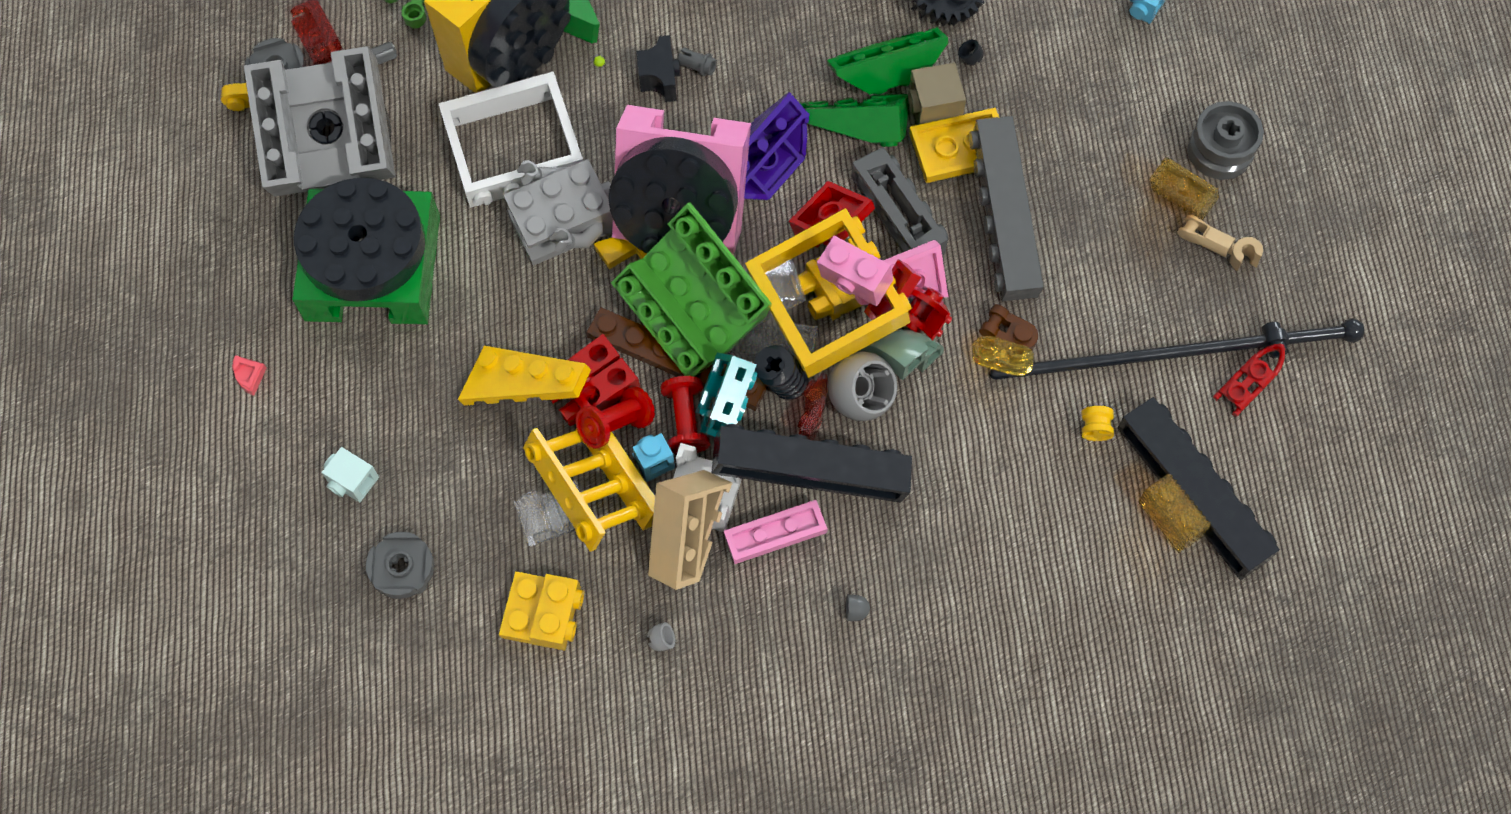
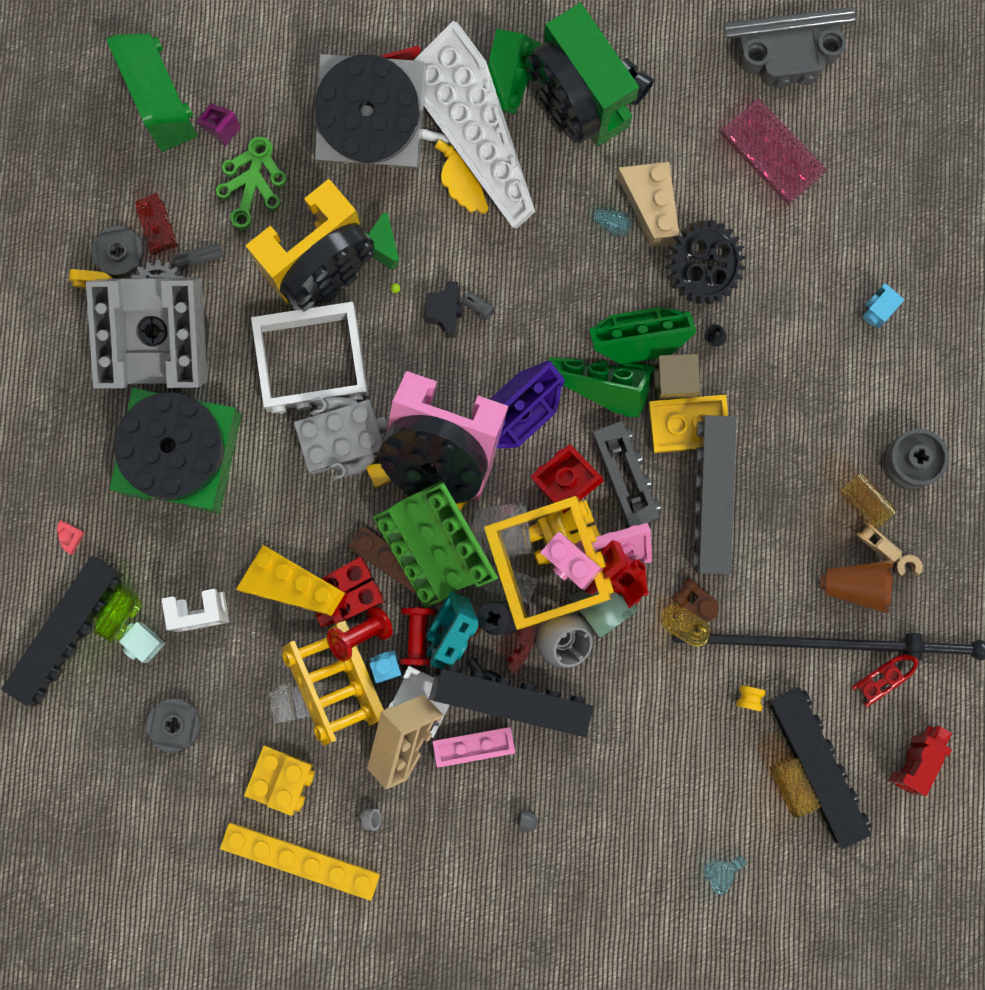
camera: 10 degrees right, 15 degrees up
(250, 478) = (62, 632): none -> black brick
(312, 445) = (112, 621): none -> clear neon green brick
(416, 432) = (179, 619): none -> white panel
(581, 704) = (300, 861): none -> yellow plate
(1110, 632) = (722, 874): none -> clear light blue rock
(1197, 277) = (861, 584): none -> dark orange cone
(1319, 458) = (923, 761): none -> red hips

